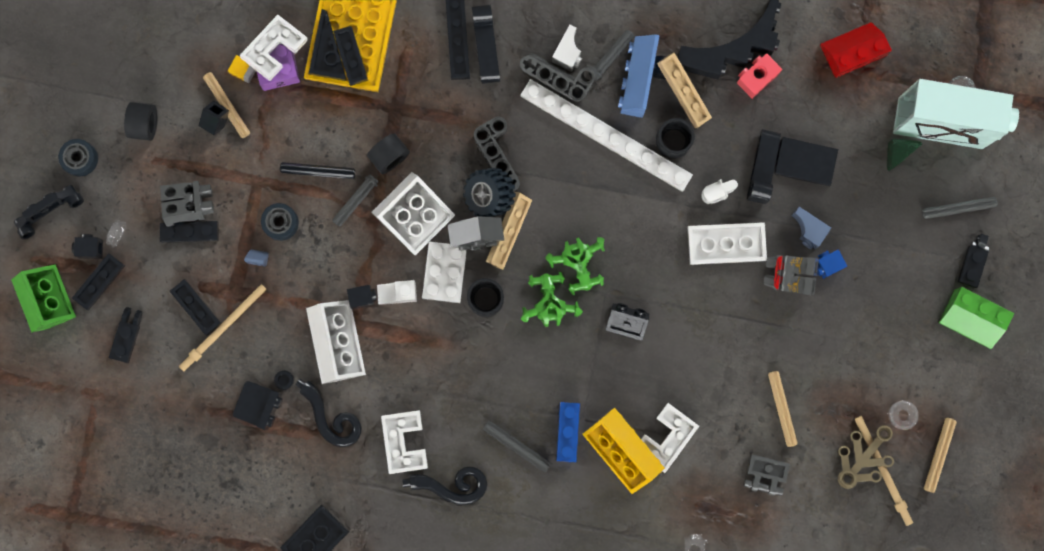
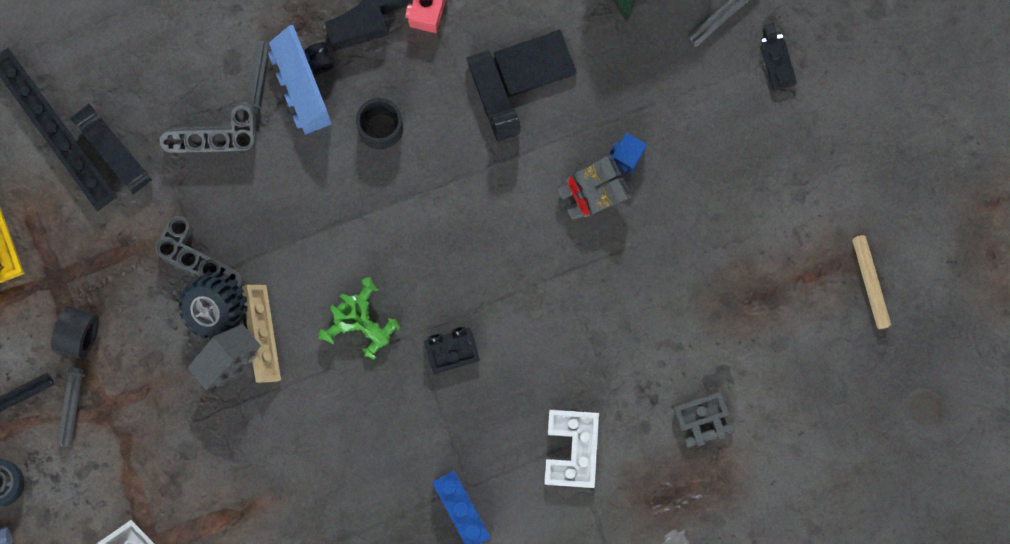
camera: 30 degrees left, 5 degrees down
(361, 297) = (141, 507): black brick -> none
(397, 292) = (178, 477): white arch -> none
(413, 213) = (143, 380): white slope -> none
(444, 273) = (218, 424): white plate -> none
(482, 283) = (265, 410): black piece -> none
(550, 306) = (357, 386): bright green piece -> none
(567, 53) = (206, 105): white arch -> none
(606, 135) = (303, 166): white plate -> none
(623, 451) = (534, 492): yellow slope -> none
(684, 90) = (357, 67): tan plate -> none
(718, 191) = (461, 151): white arm -> none
(727, 243) = (505, 200): white plate -> none
(782, 408) = (676, 338): tan axle -> none
(812, 229) = (586, 128): sand blue arch -> none
(863, 459) = (794, 338): dark tan plant -> none
(894, 415) = (812, 254): clear piece -> none
(900, 504) = (865, 361): tan bar -> none
(976, 317) = (815, 114): bright green slope -> none

